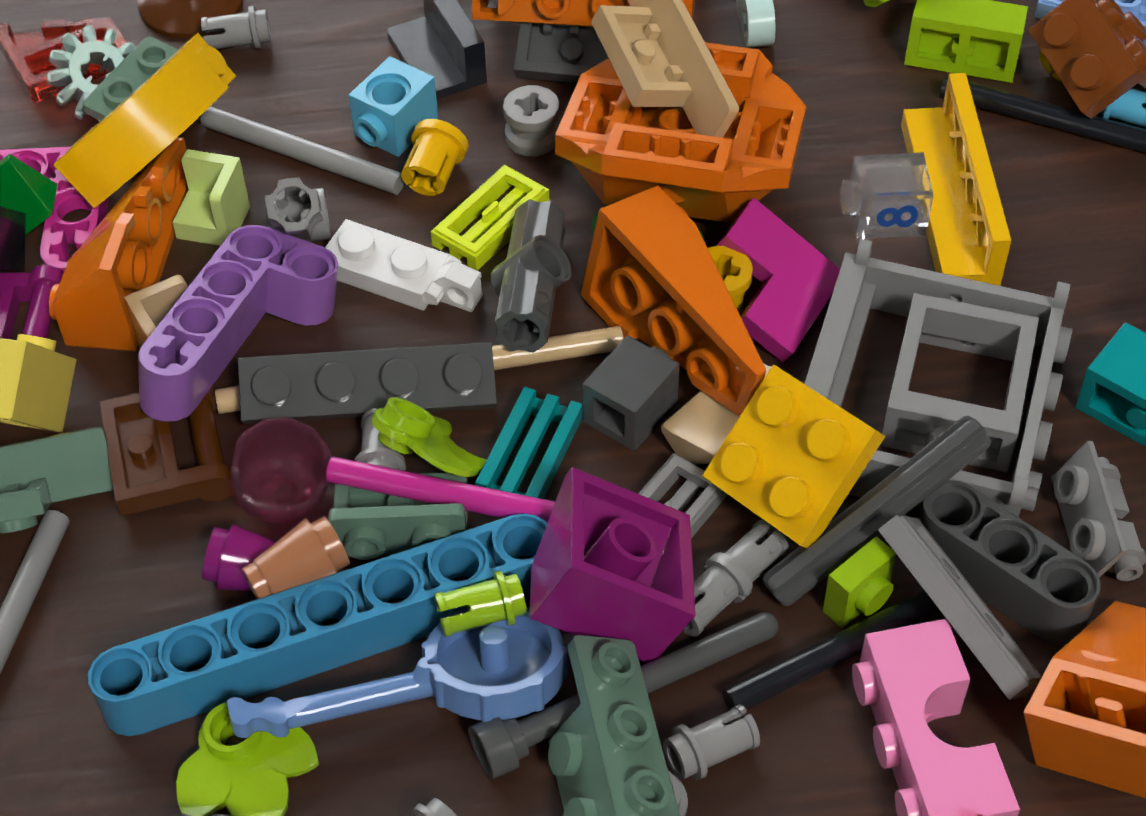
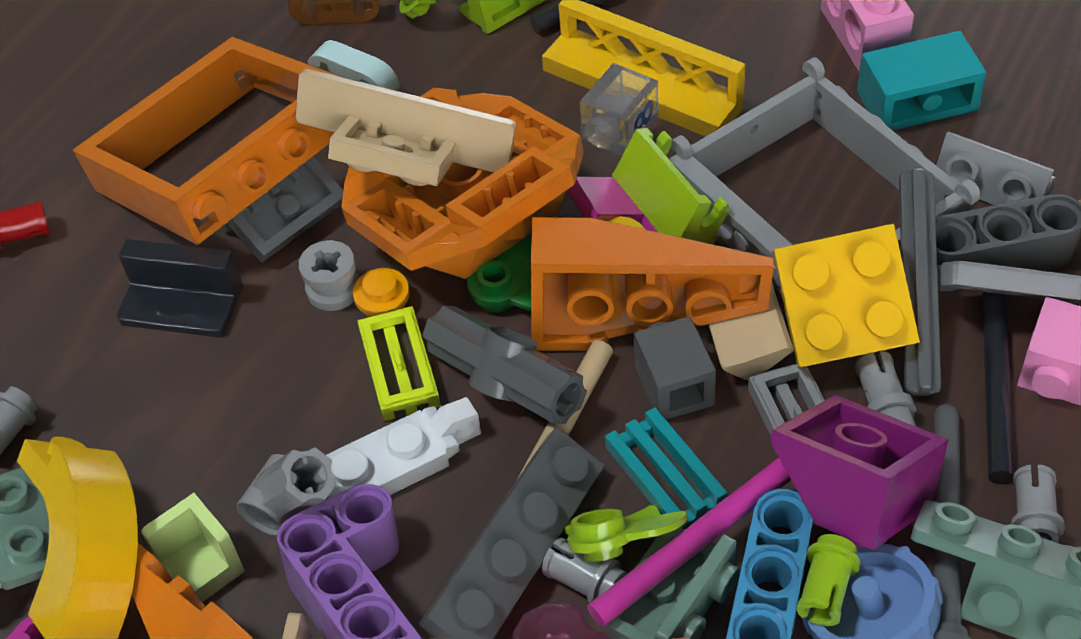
camera: 50 degrees left, 0 degrees up
(303, 150) = (215, 443): light grey bar -> none
(391, 105) = (221, 357): medium azure brick -> none
(433, 156) = (304, 361): yellow bush -> none
(543, 166) = (380, 291): none -> light orange plate
(806, 275) = (664, 192): none -> lime hinge
(860, 583) = (962, 333): lime plate -> none
(919, 418) = (796, 202): light grey window -> none

